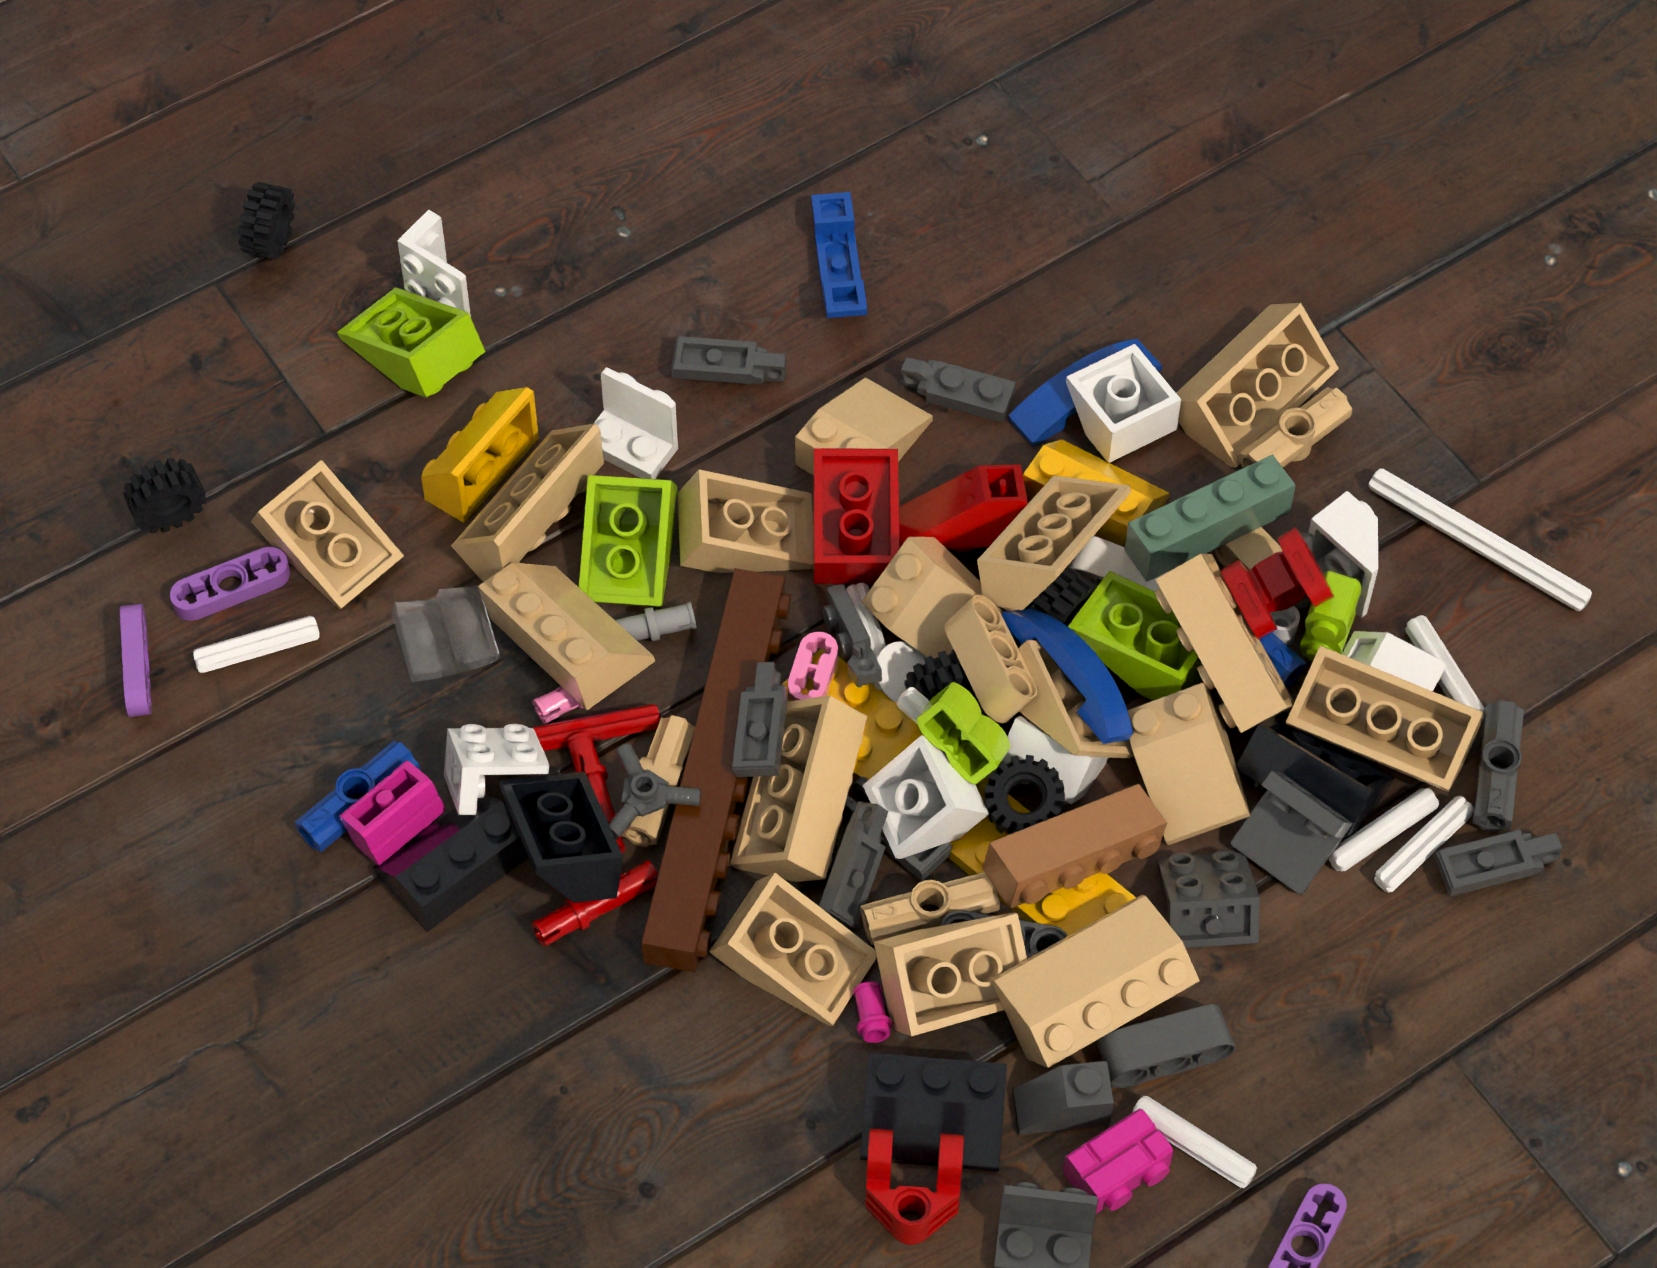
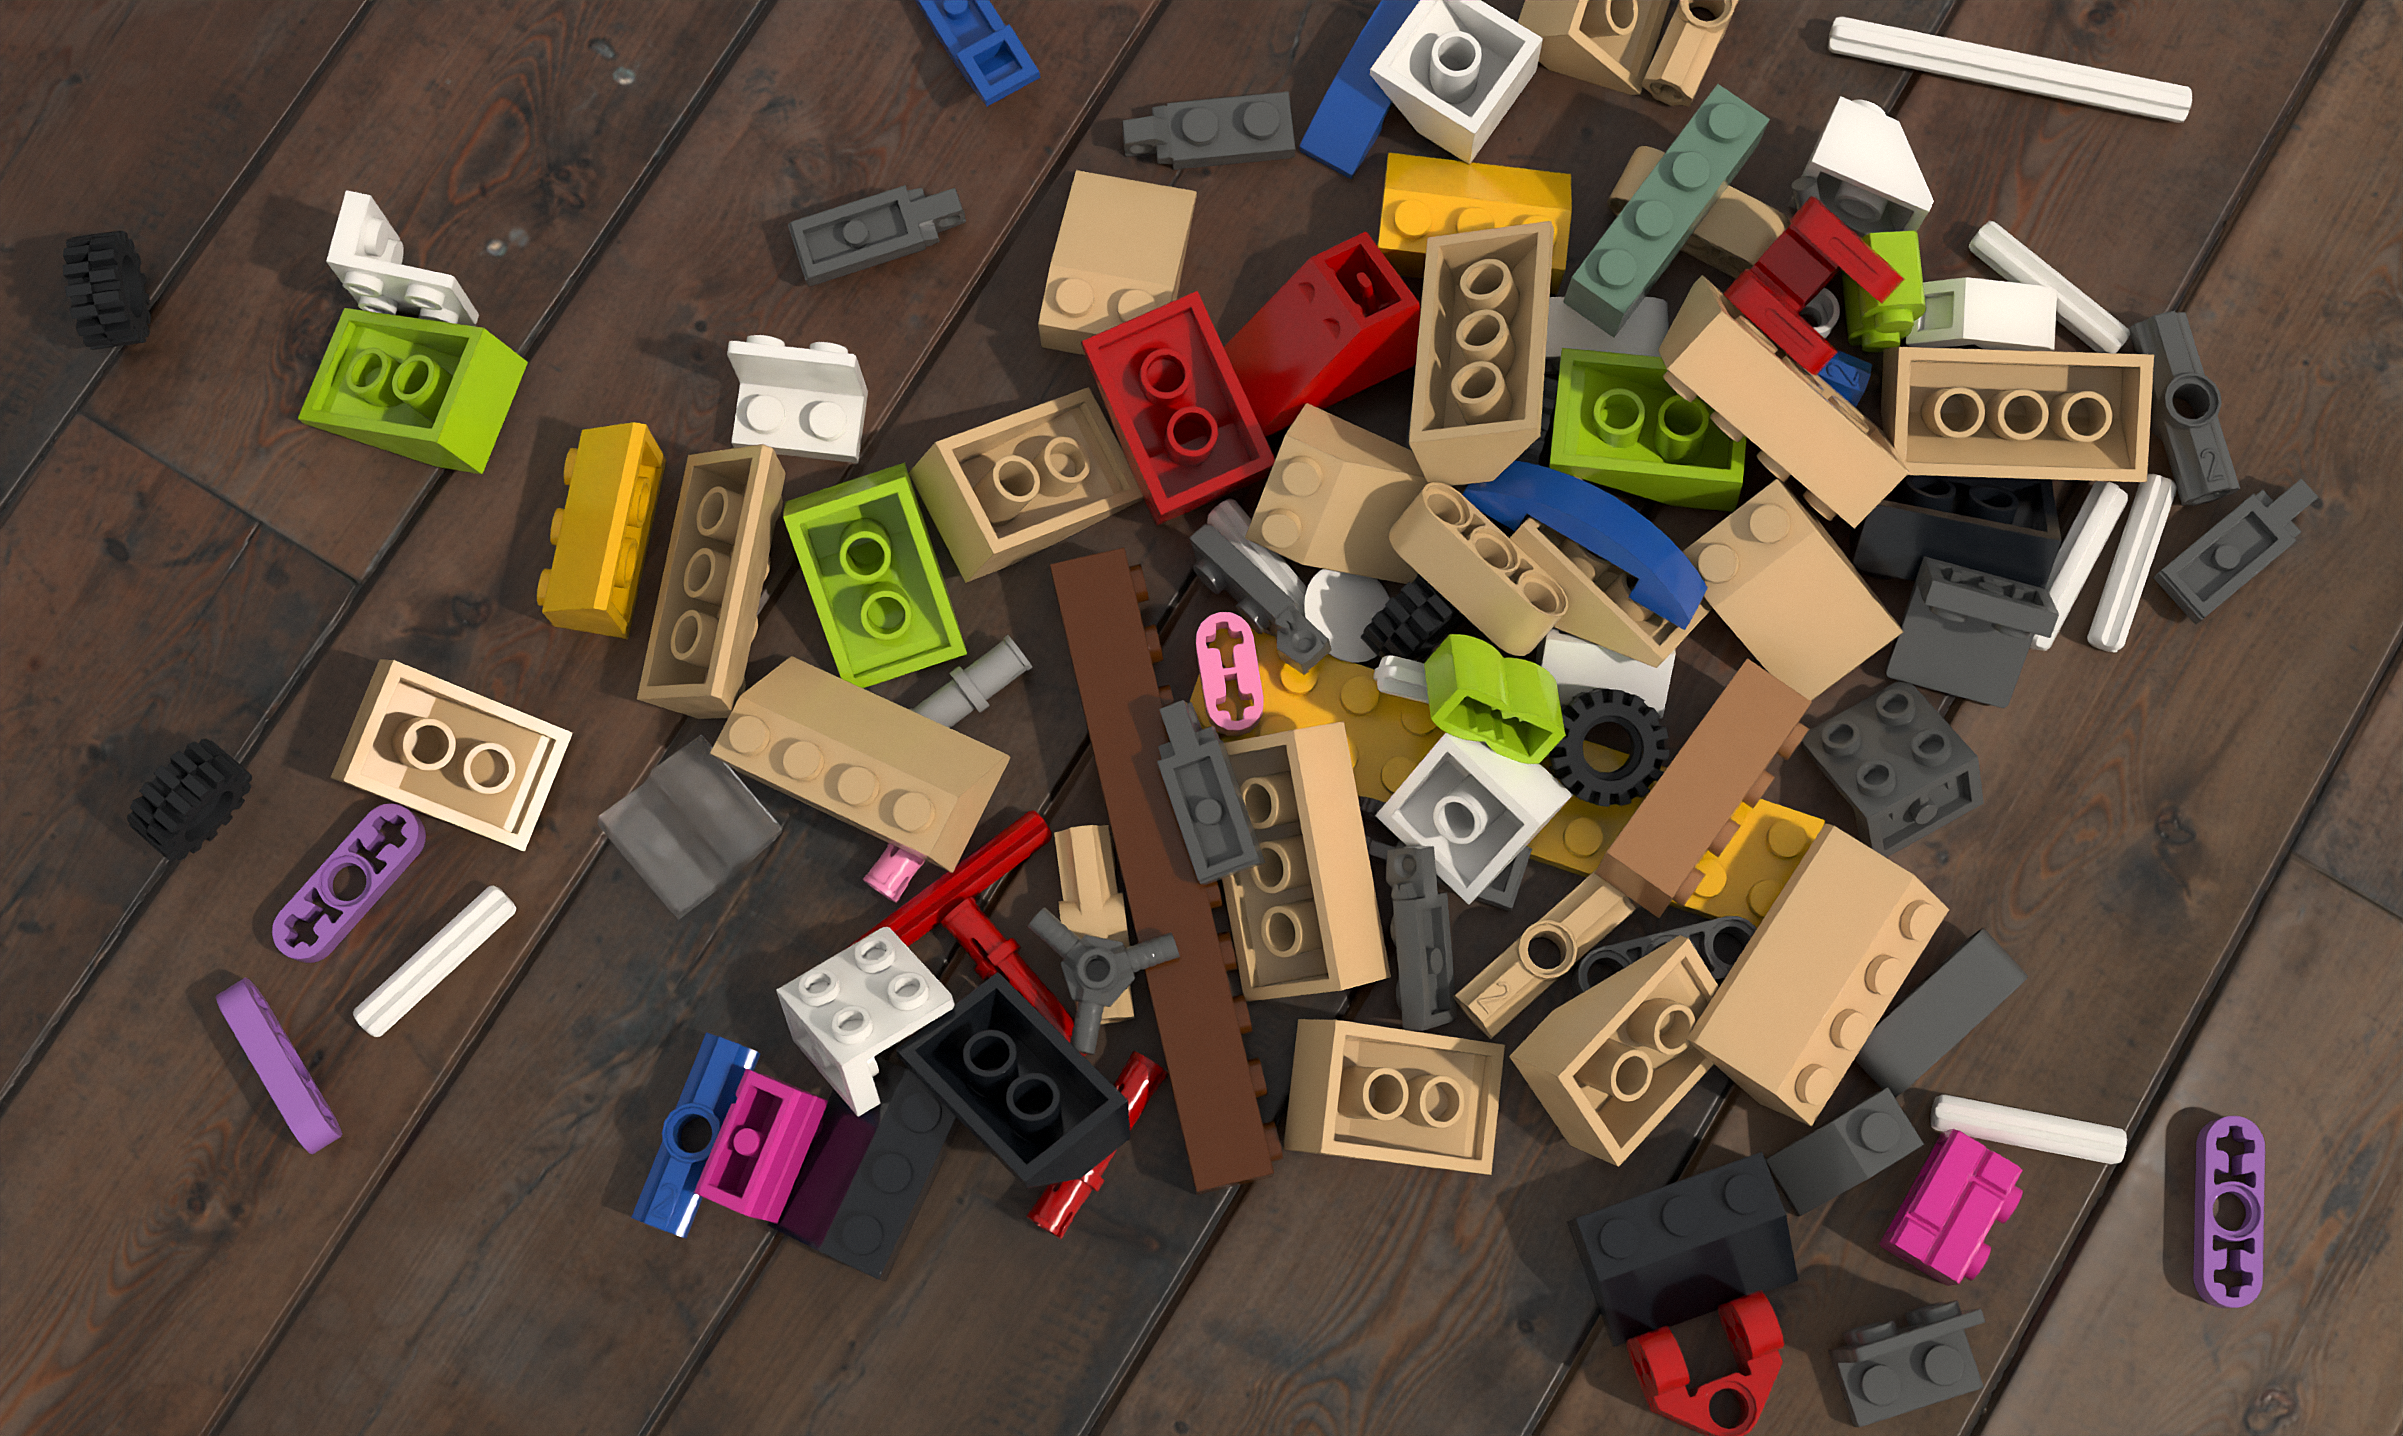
camera: 25 degrees left, 20 degrees up
(873, 1022) = (1536, 1137): dark pink pin -> none

